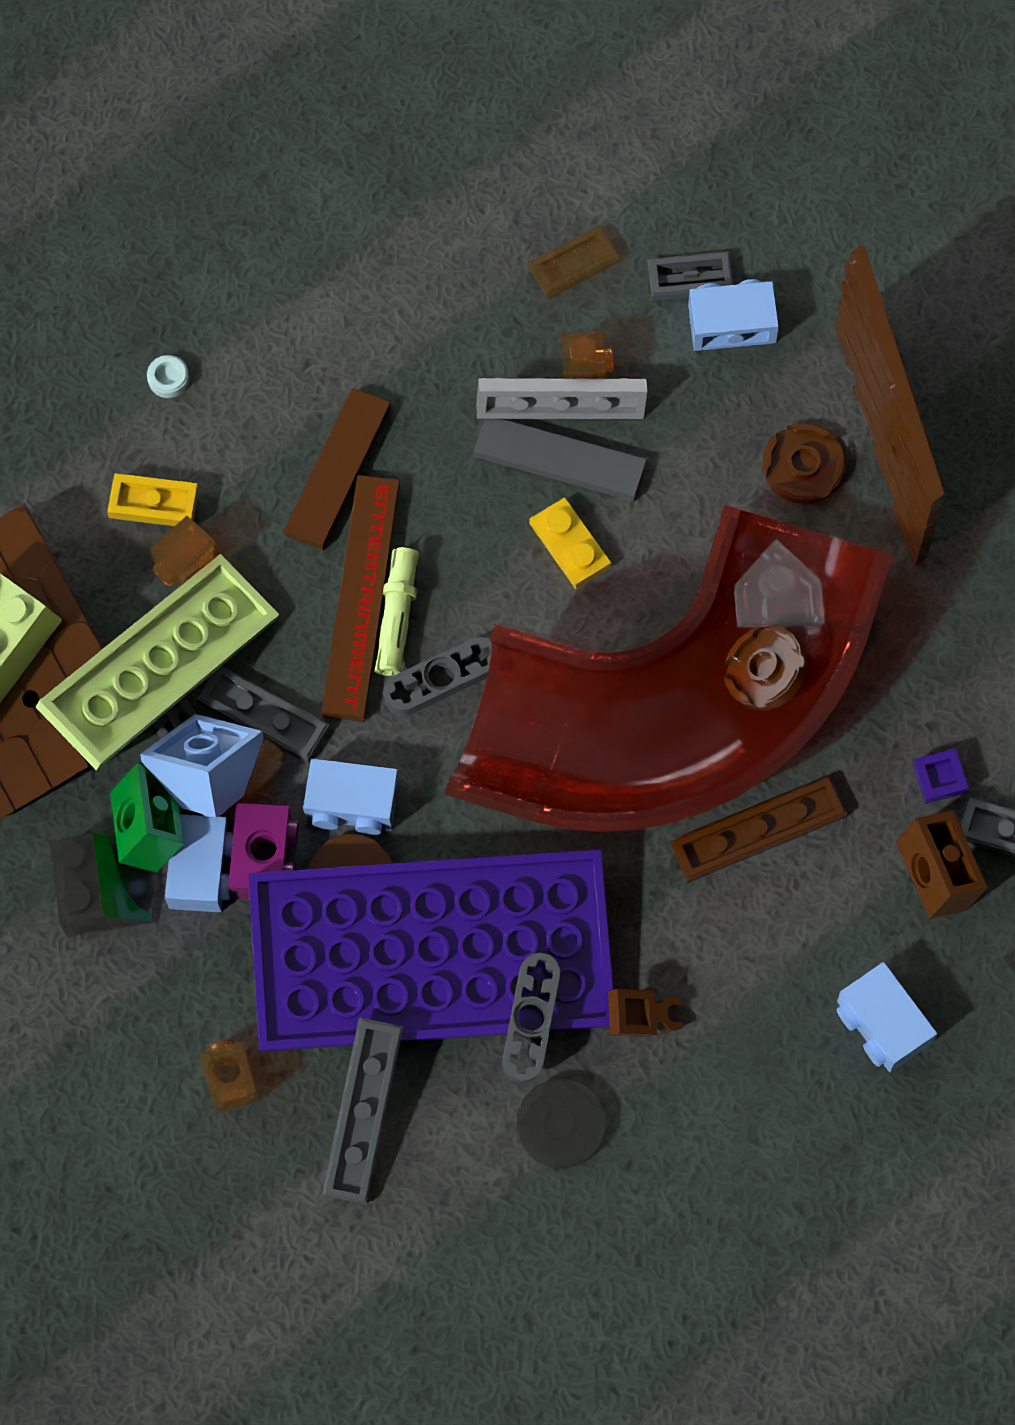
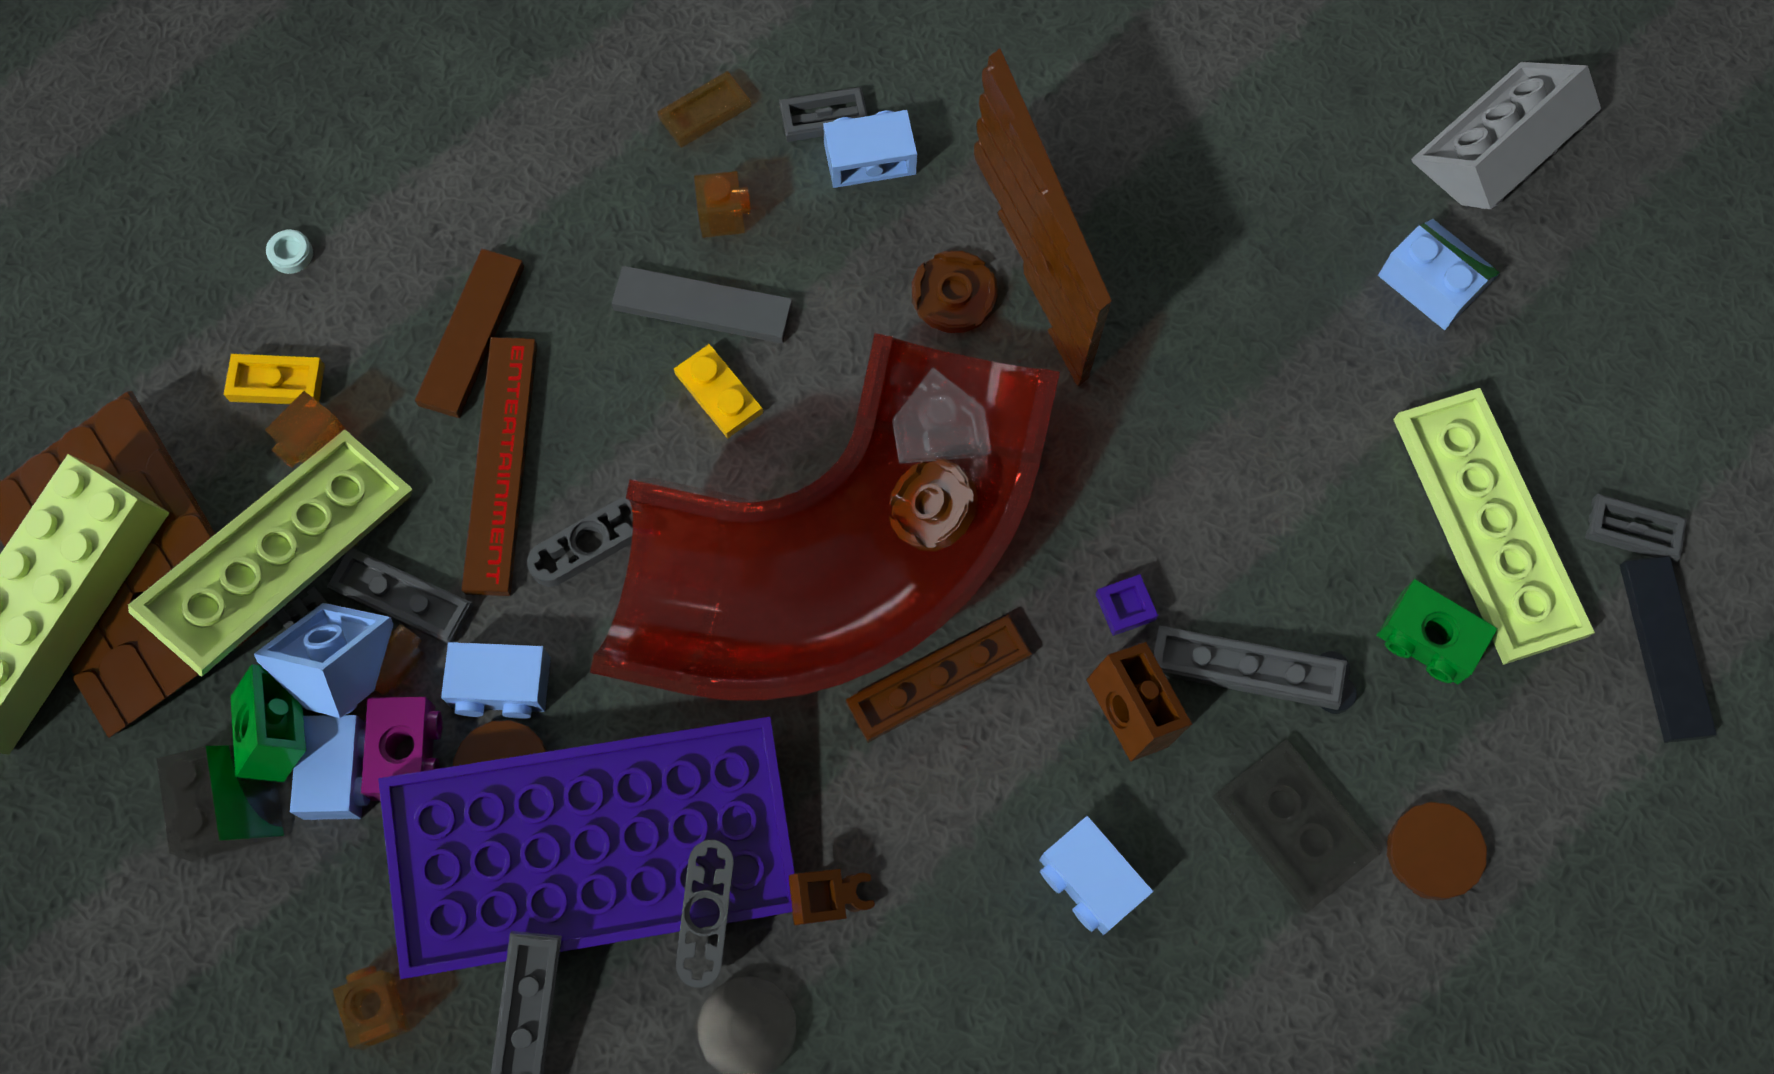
camera: 10 degrees left, 0 degrees up
(394, 627) = (539, 458): yellowish green pin -> none
(561, 398) = (698, 242): light grey plate -> none

